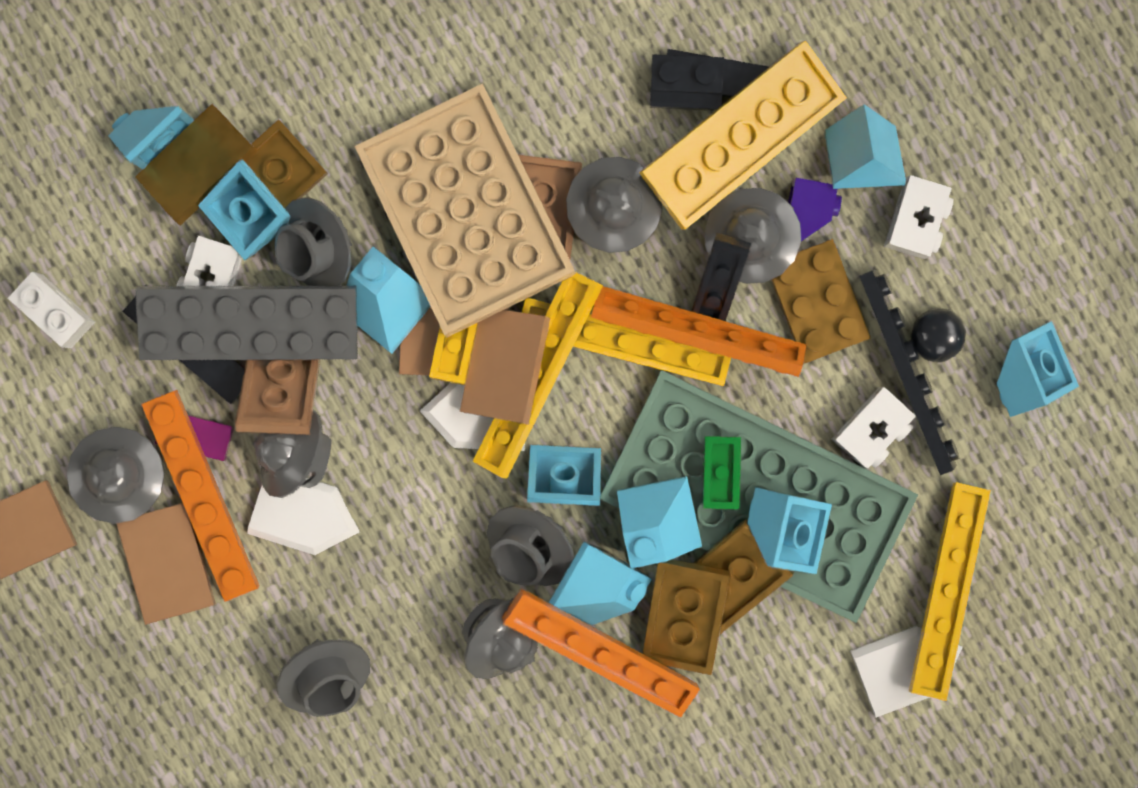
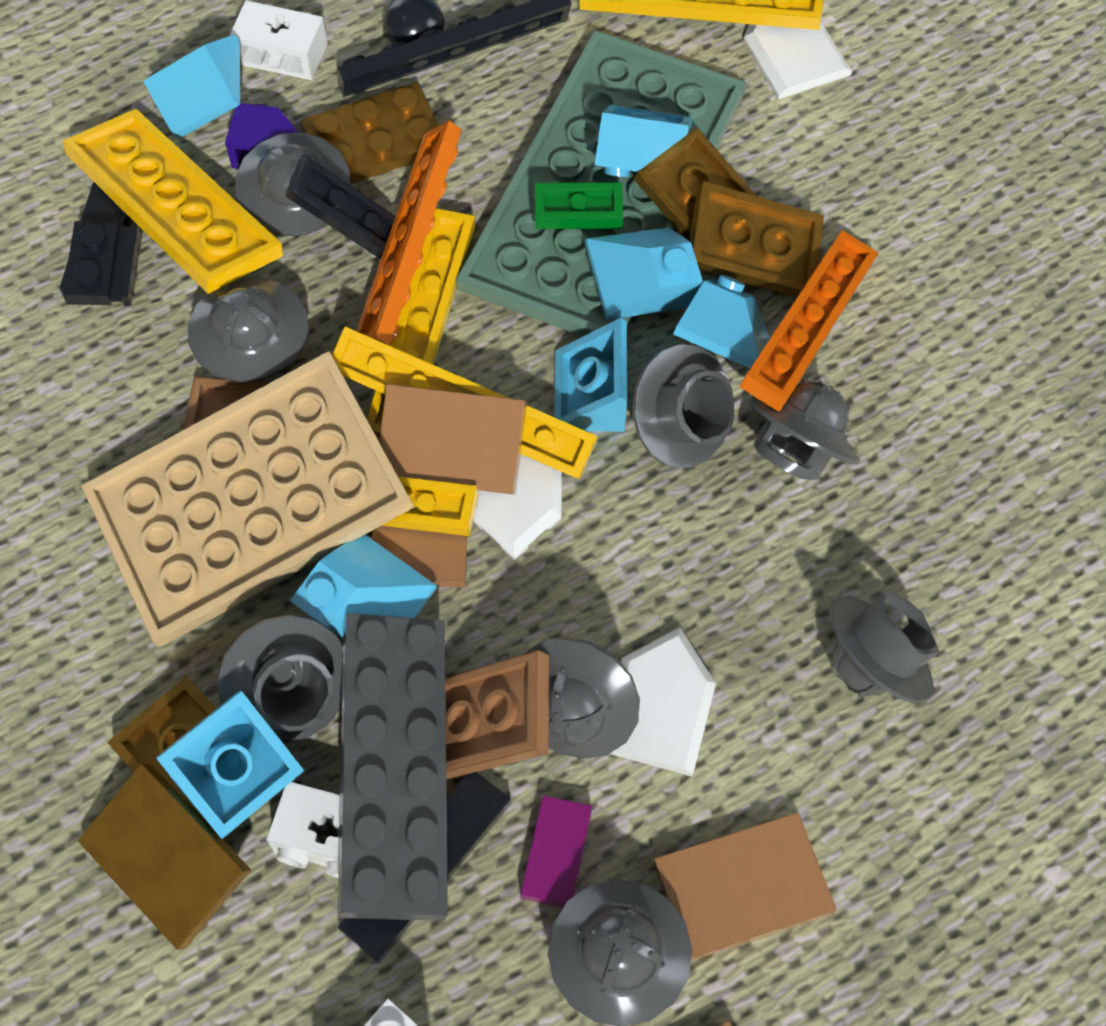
camera: 90 degrees left, 25 degrees down
(148, 132) = (109, 924): medium azure slope -> none
(200, 495) = (639, 835): orange plate -> none
(879, 408) = (519, 73): white brick -> none

